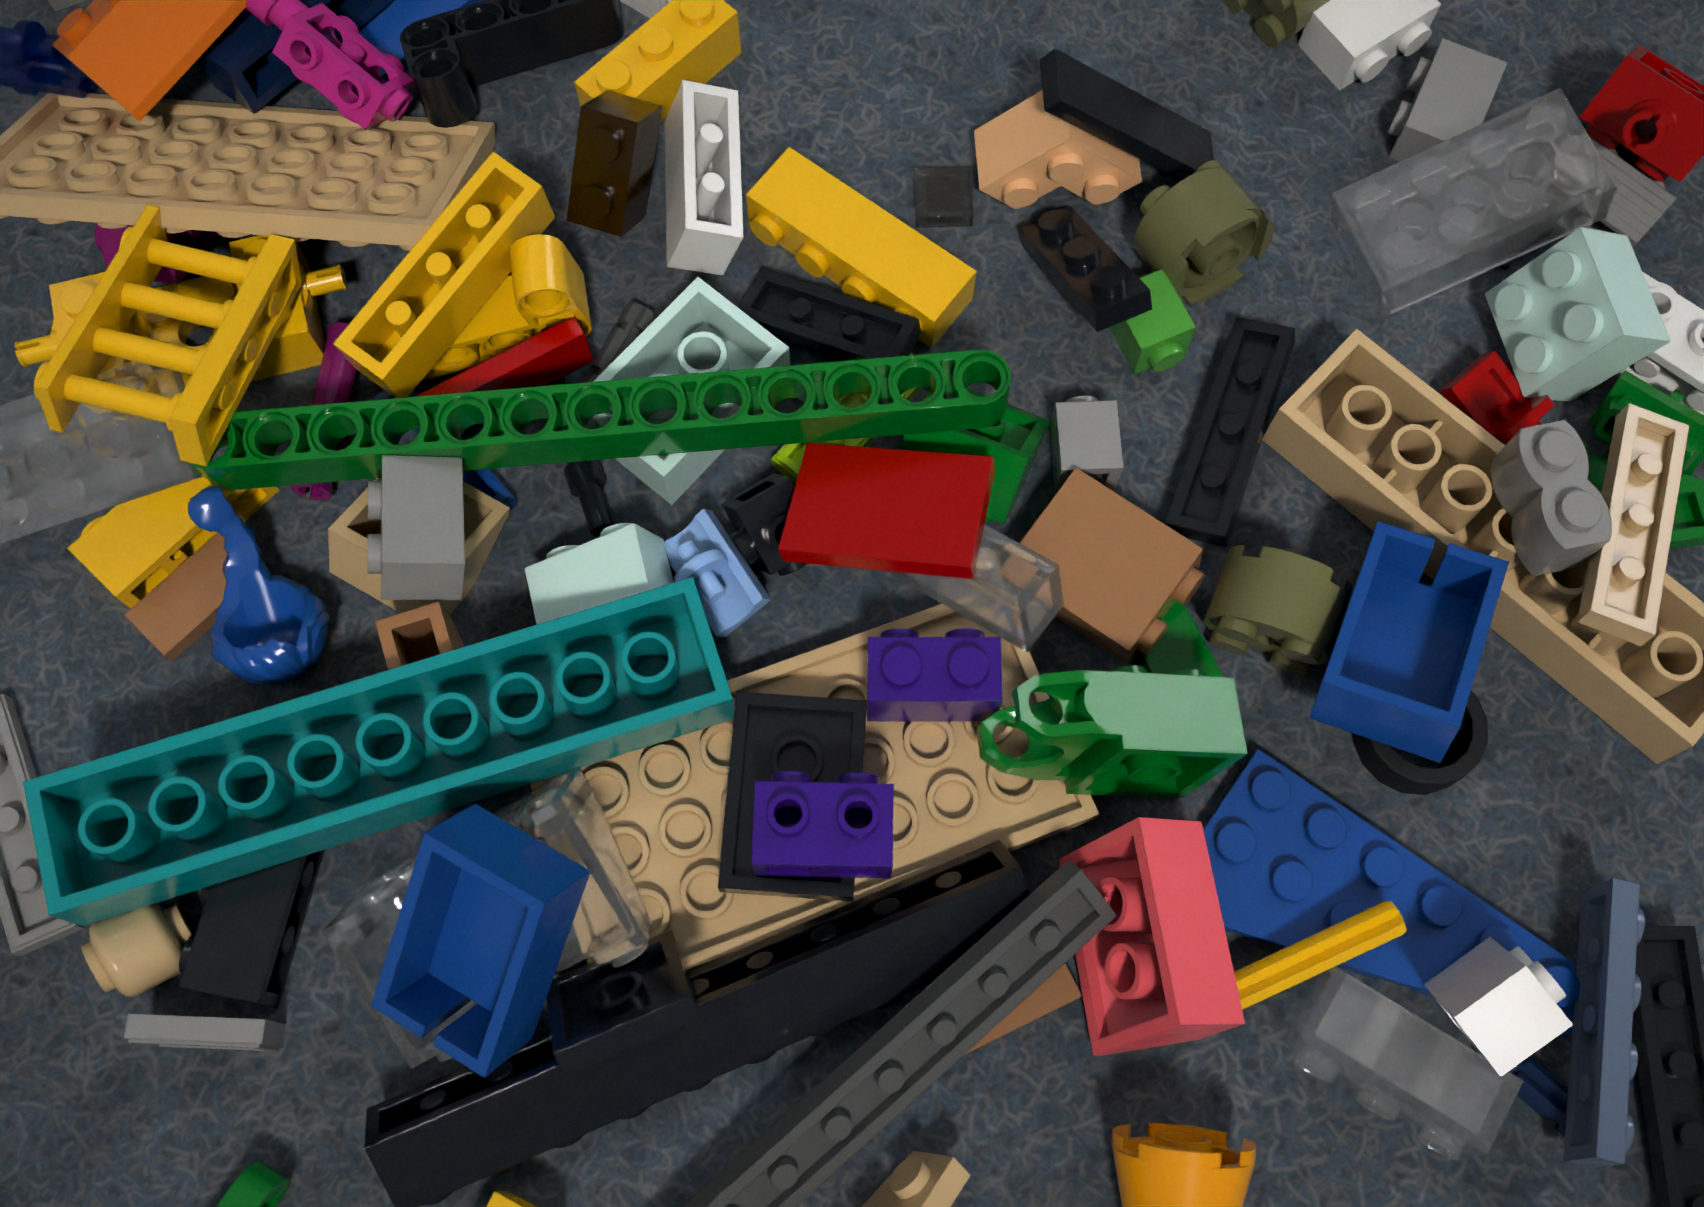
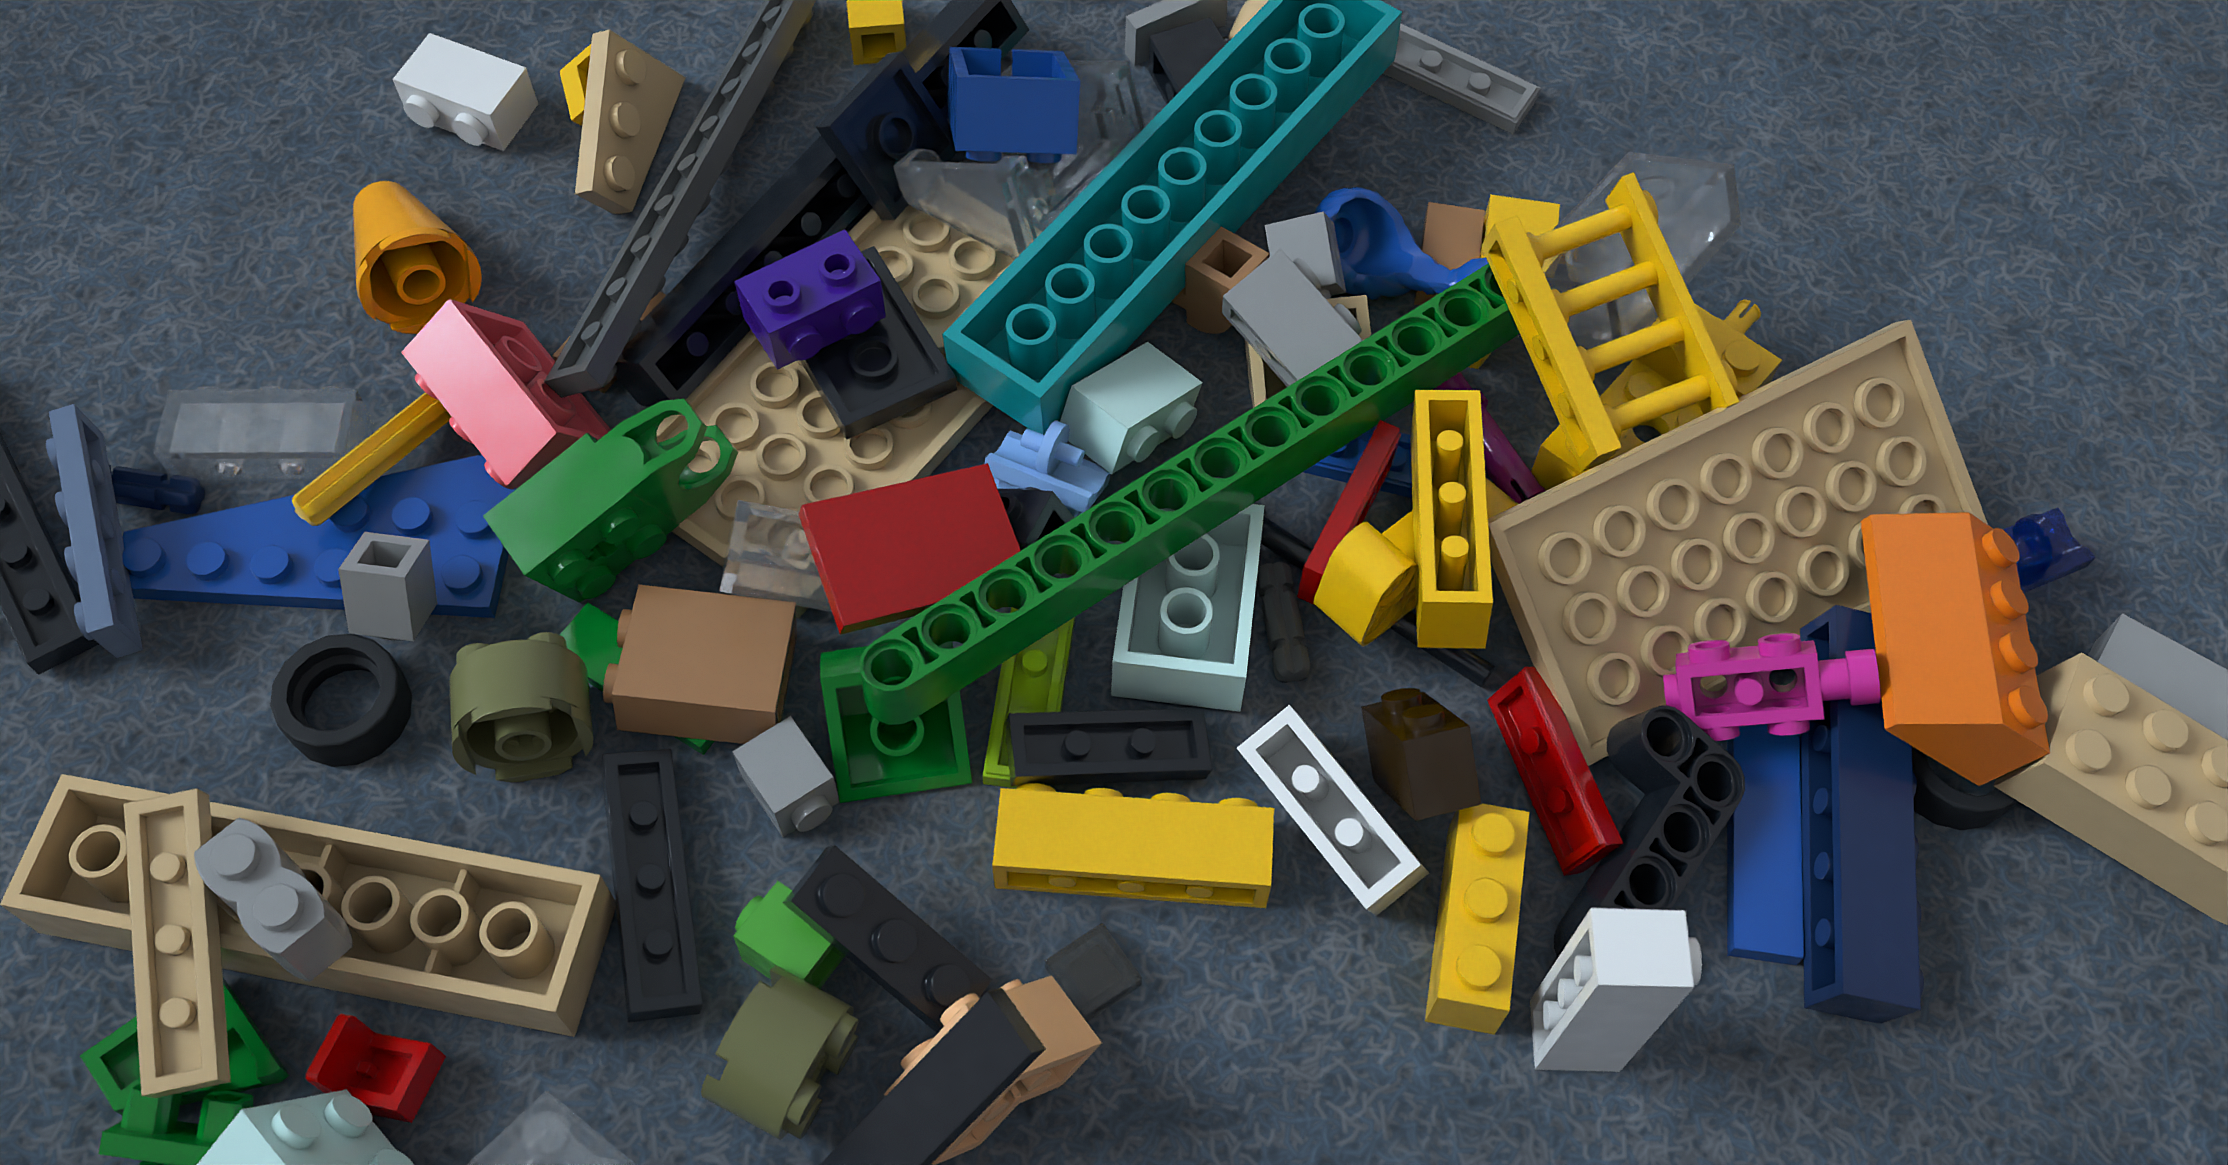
camera: 145 degrees right, 10 degrees down
(340, 610) = (1315, 243): none -> light grey brick
(527, 109) = (1554, 772): none -> red tile
(933, 676) = (801, 461): dark purple brick -> none
(1348, 780) = (388, 586): none -> light grey brick
(1410, 647) = (372, 708): blue piece -> none
(1501, 1003) = (192, 470): white brick -> none

